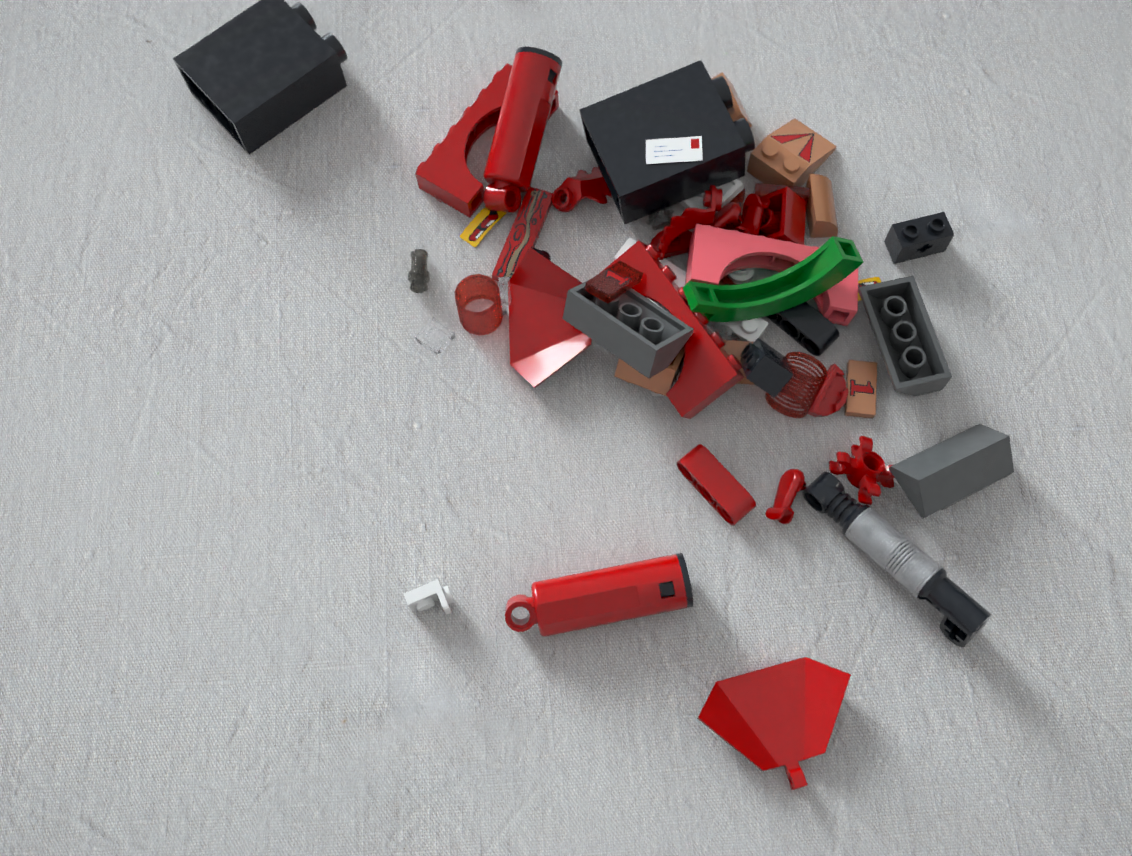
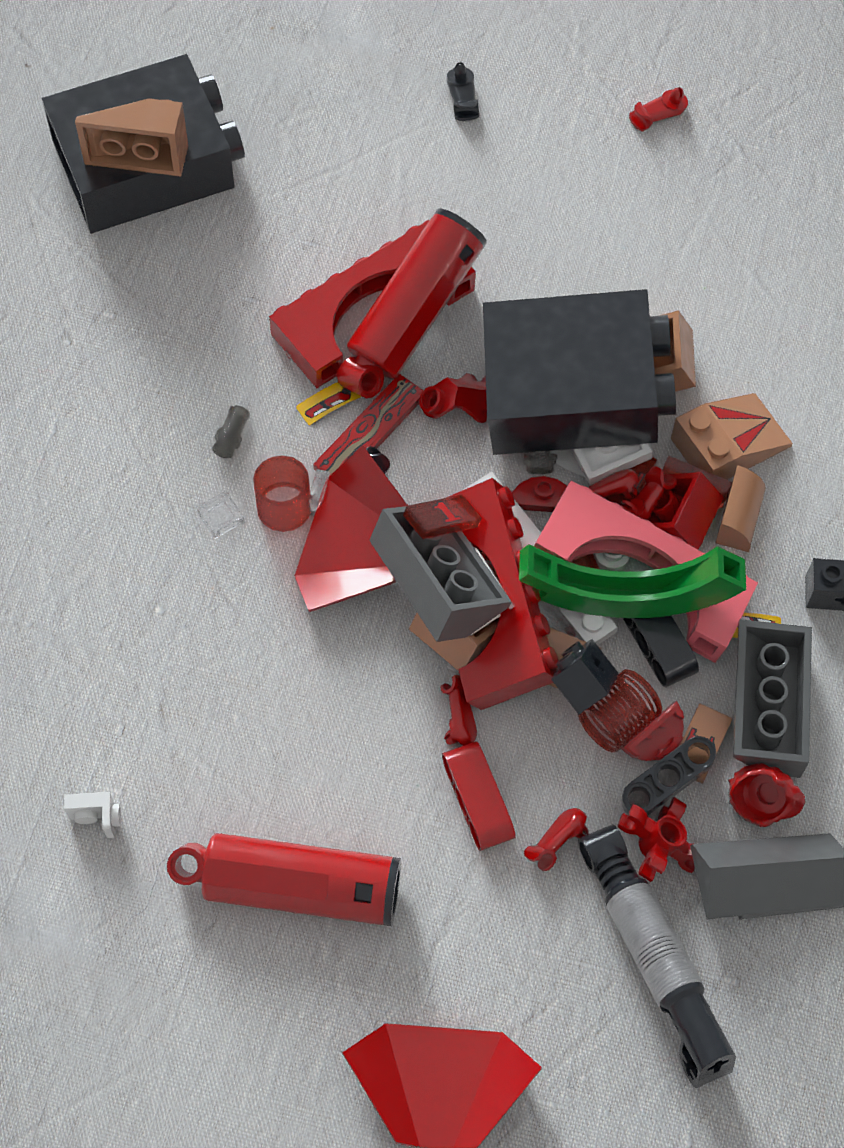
camera: 15 degrees right, 5 degrees down
(261, 64) = (136, 137): none -> nougat slope
(674, 150) = (572, 385): white sticker -> none
(681, 432) = (462, 723): none -> red piece
(687, 220) = (567, 471): red plant -> none
(861, 412) = (681, 764): none -> black beam
(924, 411) = (764, 795): none -> red hair

